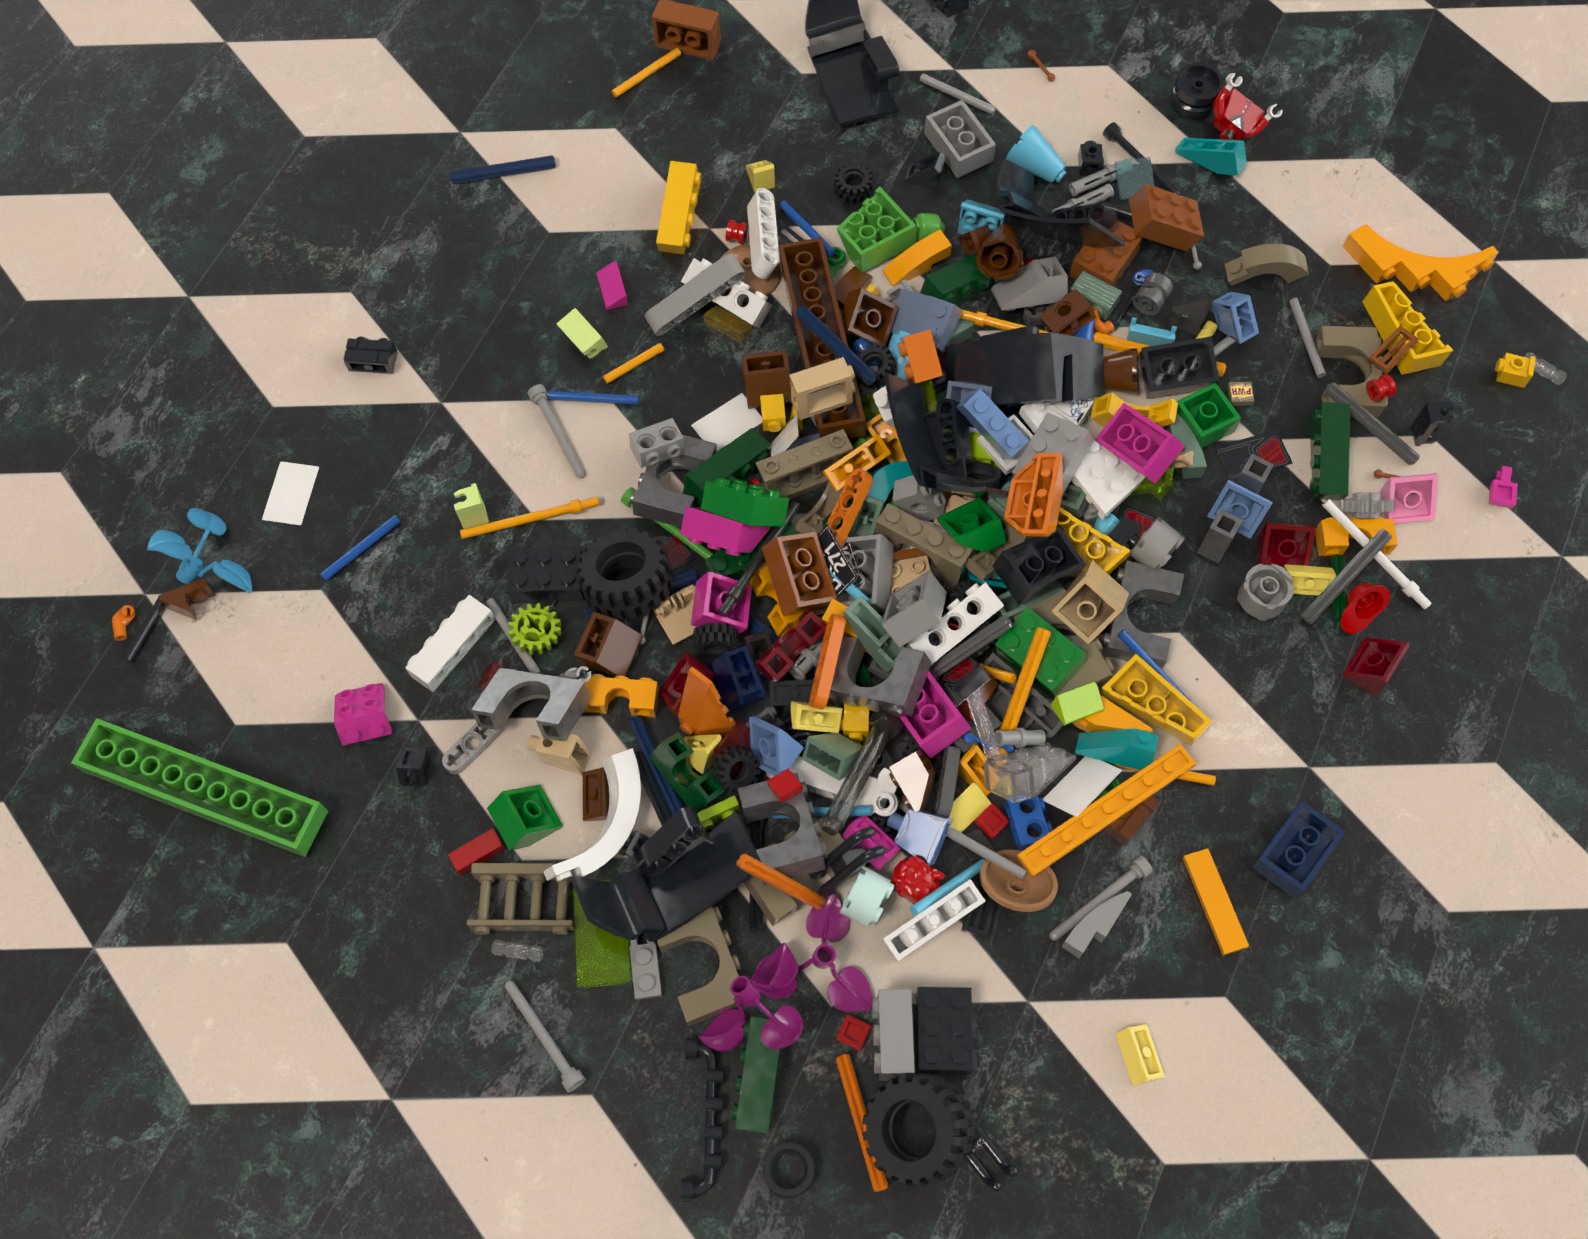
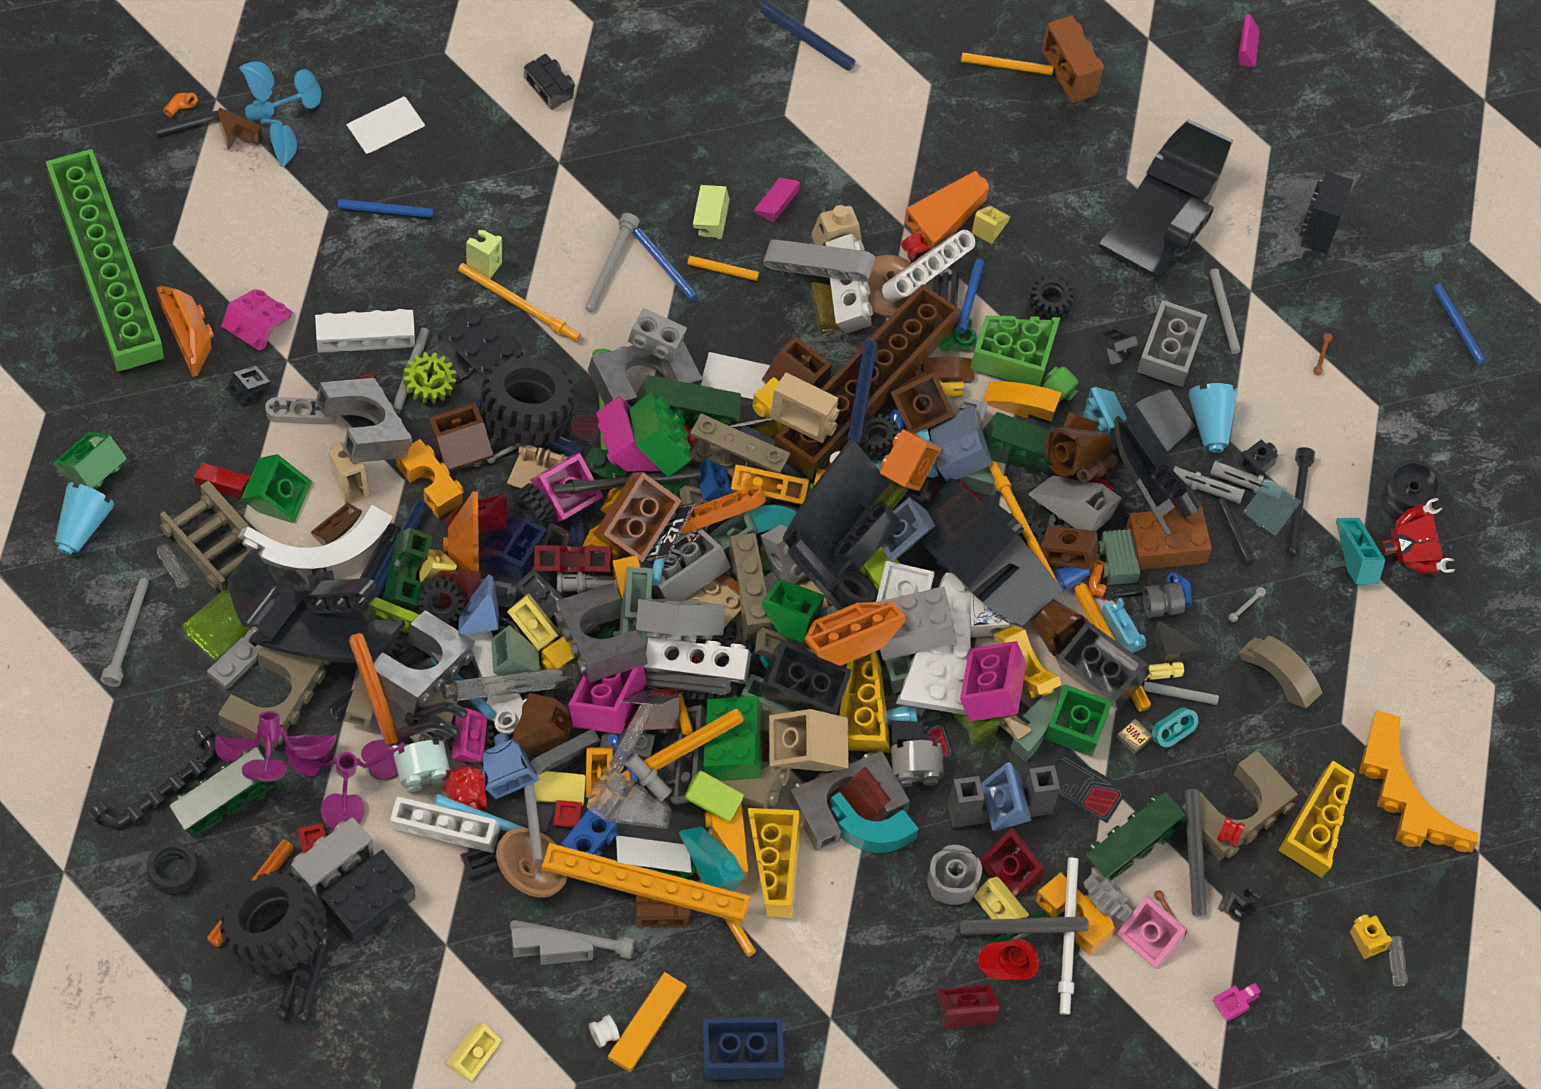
camera: 40 degrees right, 5 degrees down
(318, 771) = (187, 326): none -> orange wedge
(364, 941) = (91, 460): none -> green slope
(410, 992) = (80, 517): none -> medium azure cone
(577, 673) = (419, 432): light grey pin -> none
(676, 261) = (836, 224): none -> tan torso
(678, 207) = (894, 187): yellow wedge -> none
(725, 191) = (947, 209): none -> orange slope
(784, 785) = (454, 637): red tile -> none
(810, 501) = (713, 480): none -> blue slope
(827, 662) = (579, 589): orange beam -> none
(992, 423) = (895, 554): medium blue brick -> none
(1137, 649) = (803, 839): blue bar -> none
(1153, 602) = (865, 794): none -> clear red piece
(1166, 217) = (1244, 554): dark orange brick -> none
(1195, 605) = (872, 835): none -> teal arch
(1202, 940) = (604, 1031): none -> white wheel
(1235, 316) = (1200, 672): medium blue torso -> none
(1256, 363) = (1173, 727): none -> teal plate
(1307, 338) = (1243, 752): light grey bar -> none
(1380, 364) = (1279, 822): dark orange tile -> none

